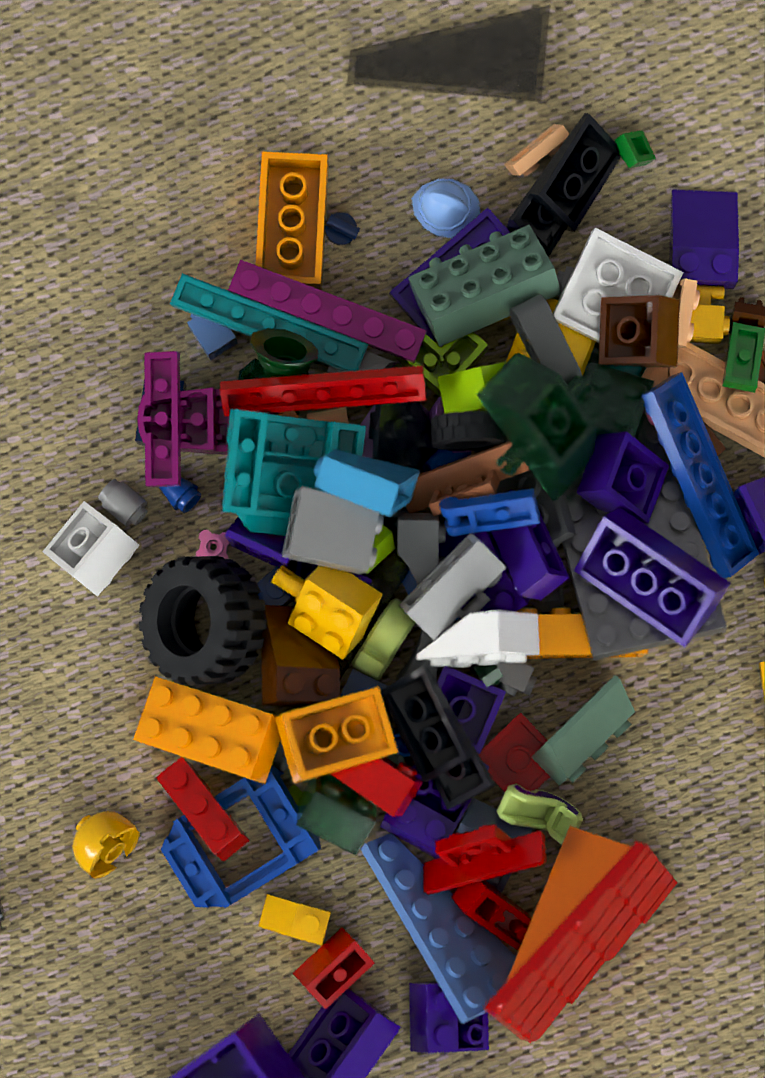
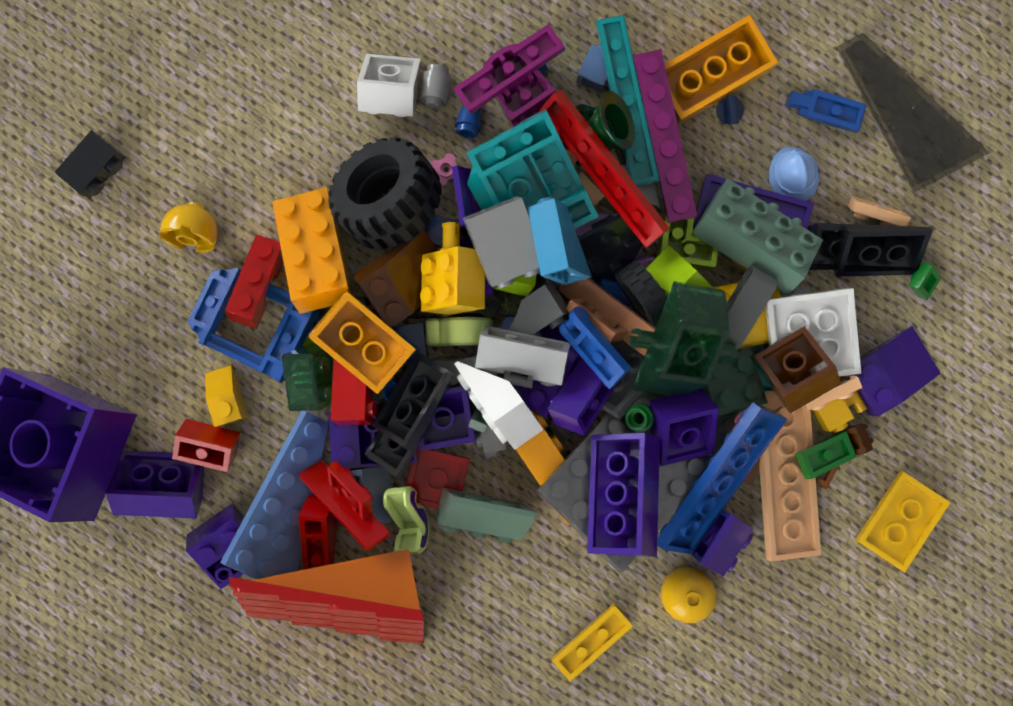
camera: 55 degrees right, 5 degrees up
(403, 132) = (828, 109): none -> blue hinge
(583, 522) = (632, 420): none -> green plate

